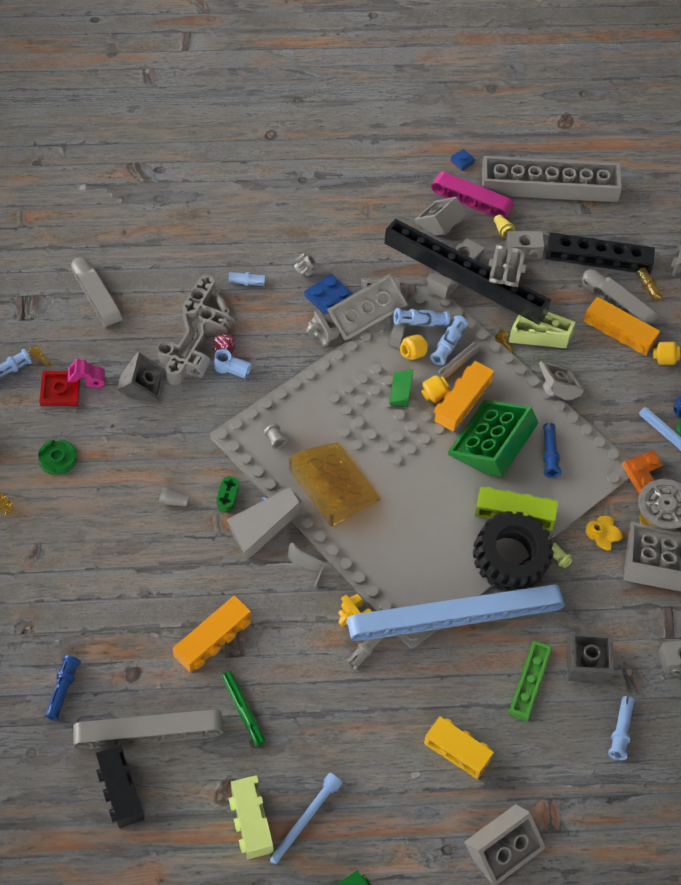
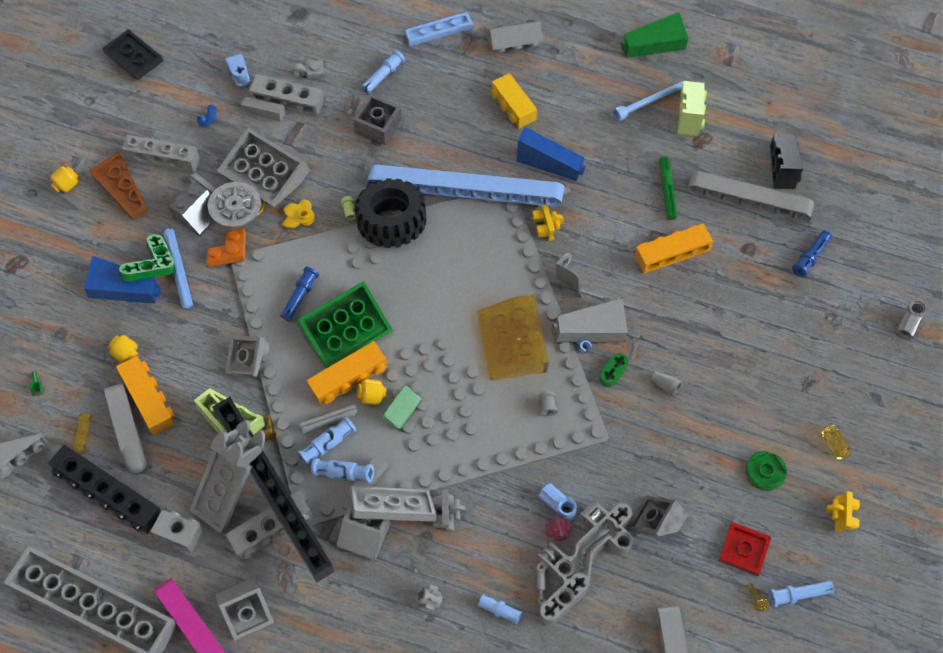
camera: 155 degrees left, 5 degrees up
(93, 374) = (721, 542): dark pink leg -> none
(327, 293) = (418, 555): blue plate -> none
(387, 685) = (548, 155): none -> blue slope
(414, 347) = (366, 445): yellow head -> none
(495, 501) = (364, 250): lime brick -> none
(503, 225) = (182, 566): light yellow cone -> none
(530, 681) = (430, 130): bright green tile -> none
(596, 821) = (438, 29): none -> light blue tile

